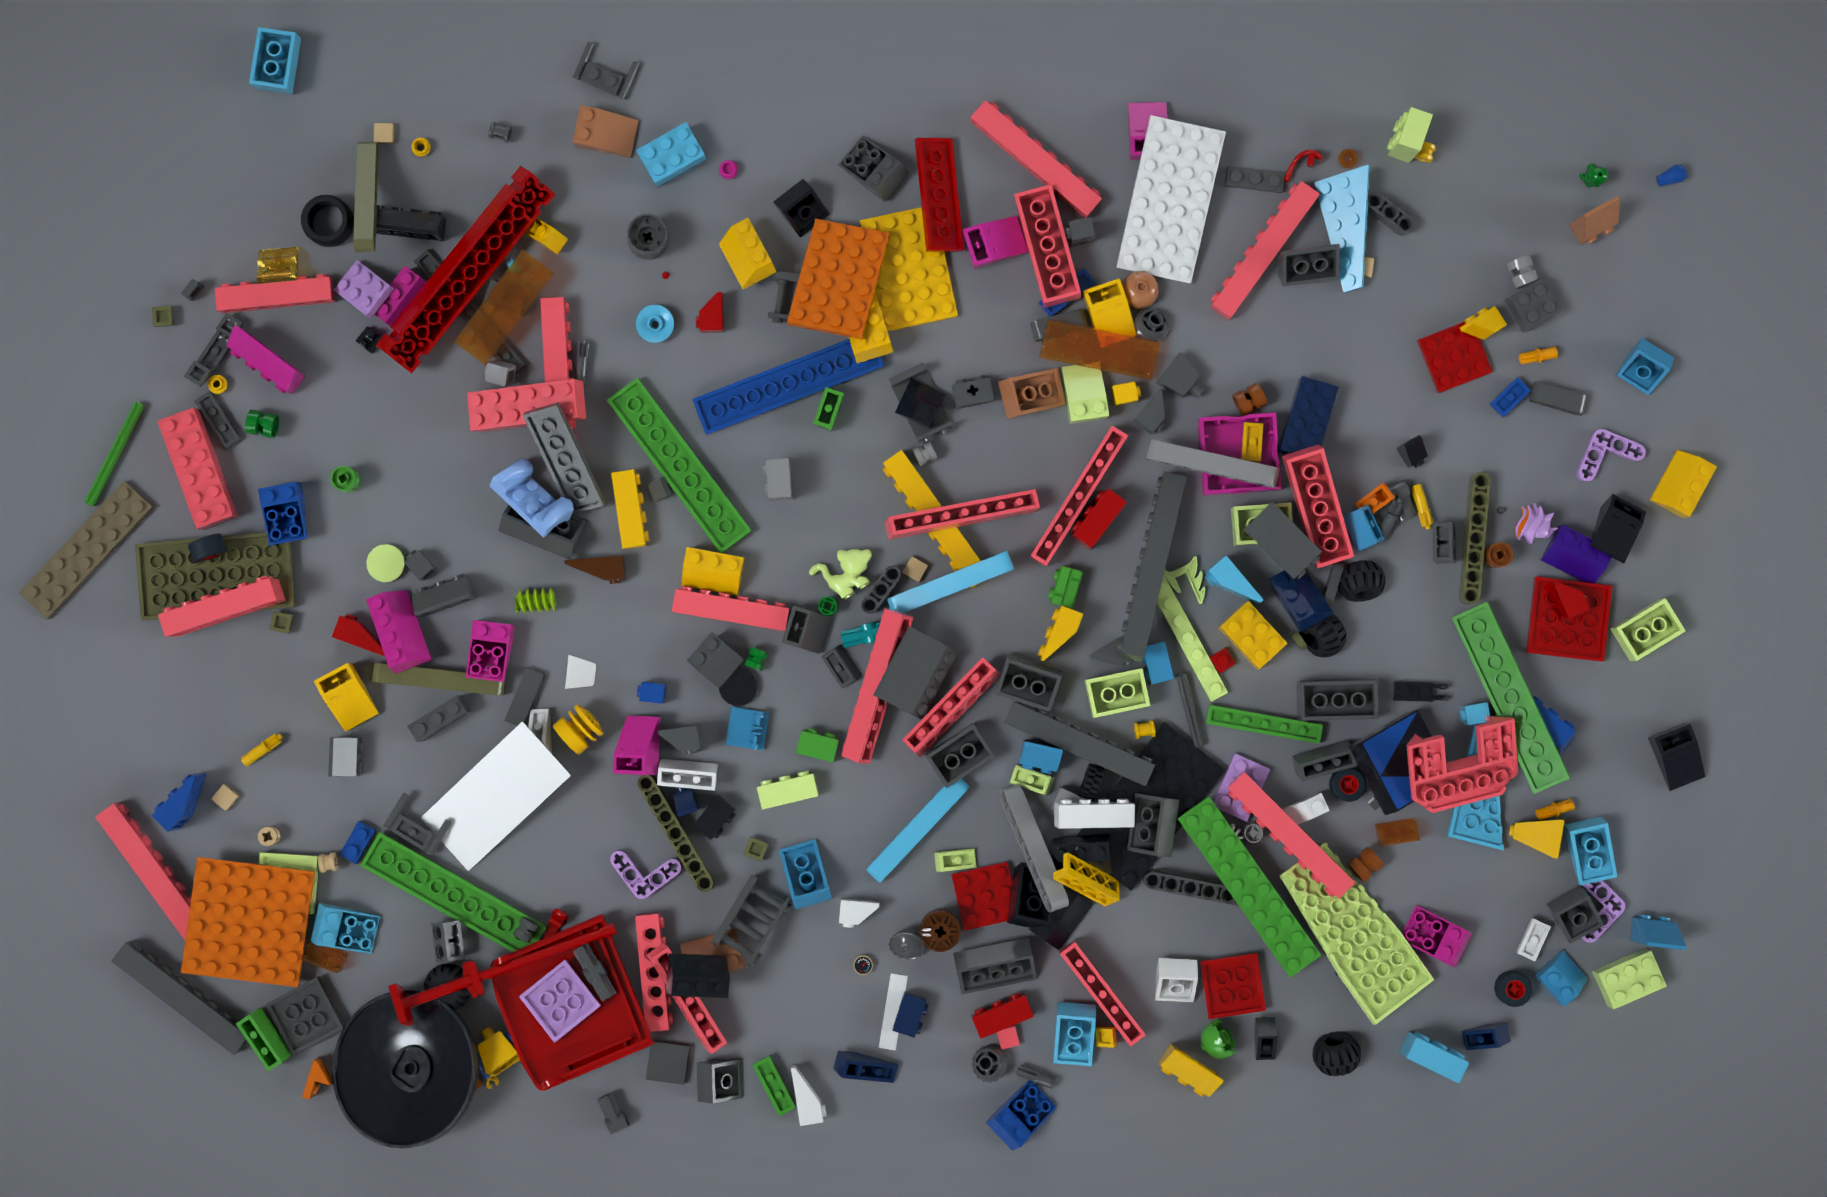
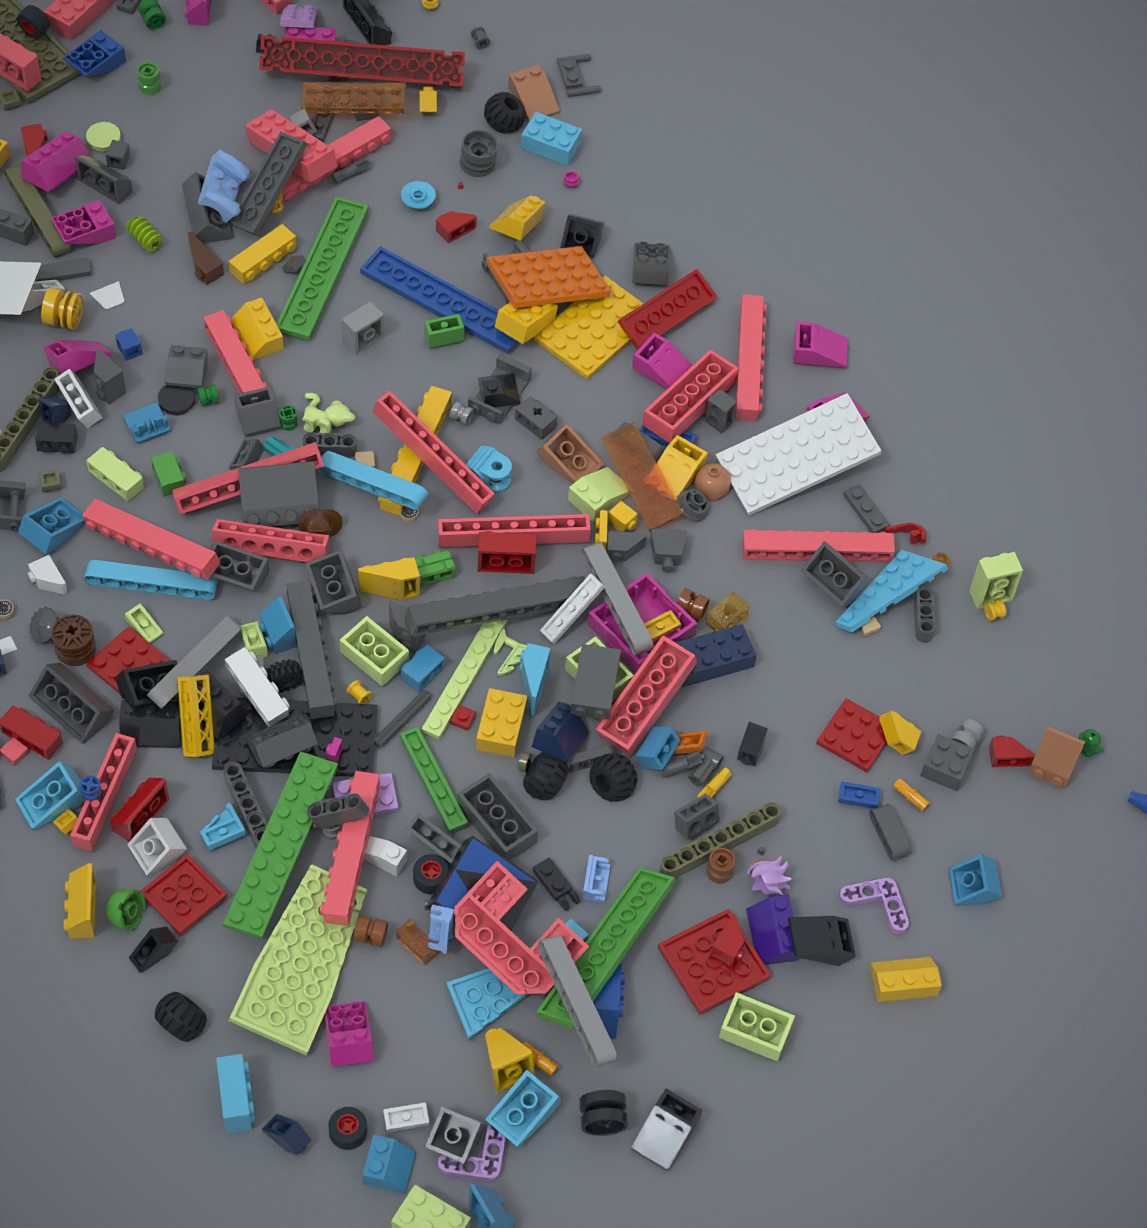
camera: 50 degrees right, 30 degrees down
(611, 176) = (504, 112): none -> black wheel
(885, 807) = (151, 539): none -> coral brick
(963, 655) = (321, 522): none -> reddish brown piece
(993, 475) = (491, 464): none -> medium azure piece
(1067, 90) = (819, 346): none -> dark pink slope
(1104, 1010) = (88, 783): none -> blue wheel
(1132, 426) = (601, 524): none -> yellow plate
(1134, 974) = (139, 808): none -> red slope
(1191, 789) = (334, 750): none -> dark pink plate
(1192, 504) = (572, 608): none -> white tile
(1195, 918) = (223, 829): none -> medium azure wing
(1263, 821) = (338, 810): none -> dark grey beam
(1273, 387) = (730, 605): none -> clear yellow brick
(1411, 814) = (441, 928): none -> light blue hinge
(1438, 659) = (596, 879): none -> light blue hinge
(1556, 249) = (1009, 753): none -> red slope
(1557, 763) = (577, 1001): none -> light grey beam
(1638, 796) = (603, 1112): none -> black wheel

